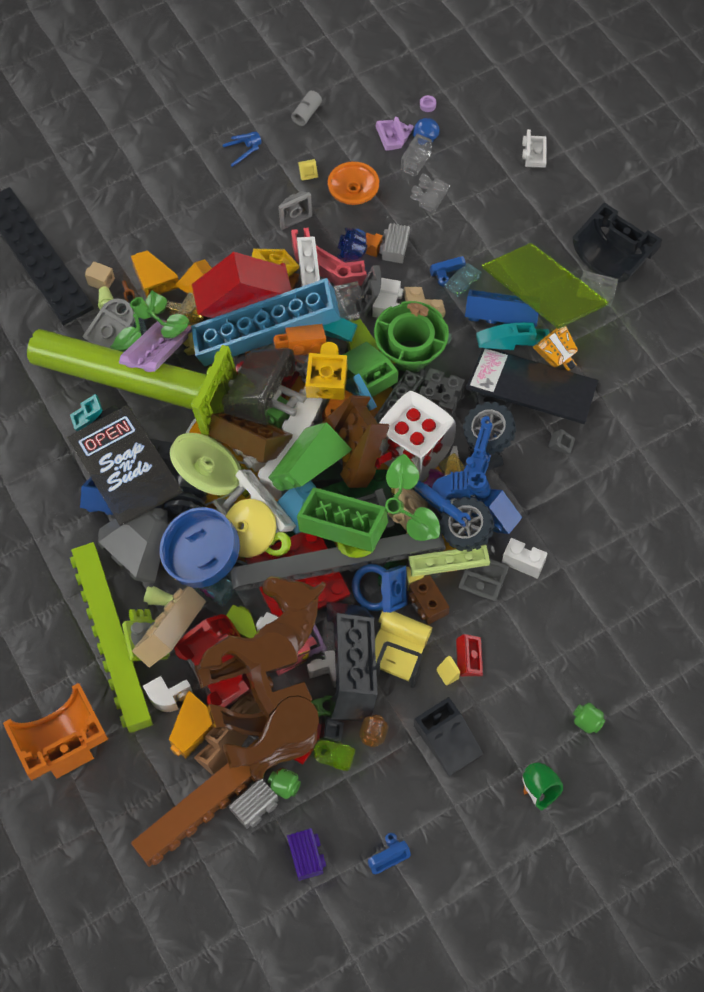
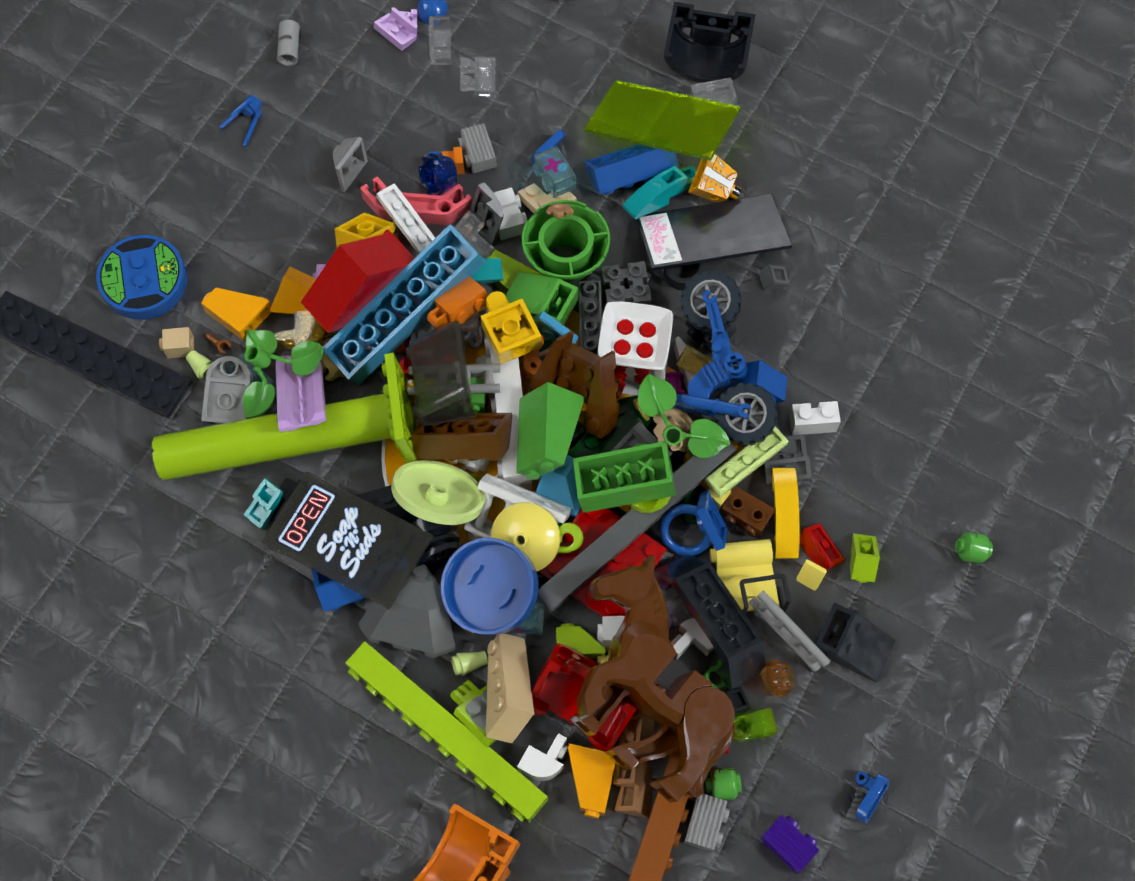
camera: 30 degrees left, 5 degrees up
(104, 221) = (141, 277): none -> piece
(308, 169) = (333, 111): light yellow tile -> none
(353, 183) = (390, 95): orange dish -> none
(402, 700) = (794, 638): none -> light grey bar
(438, 284) = (554, 171): none -> clear light blue brick
(457, 615) = (786, 513): none -> yellow slope
(462, 279) = (573, 150): clear light blue slope -> none
(496, 680) = (864, 558): none -> lime slope
(540, 780) = (971, 639): green piece -> none

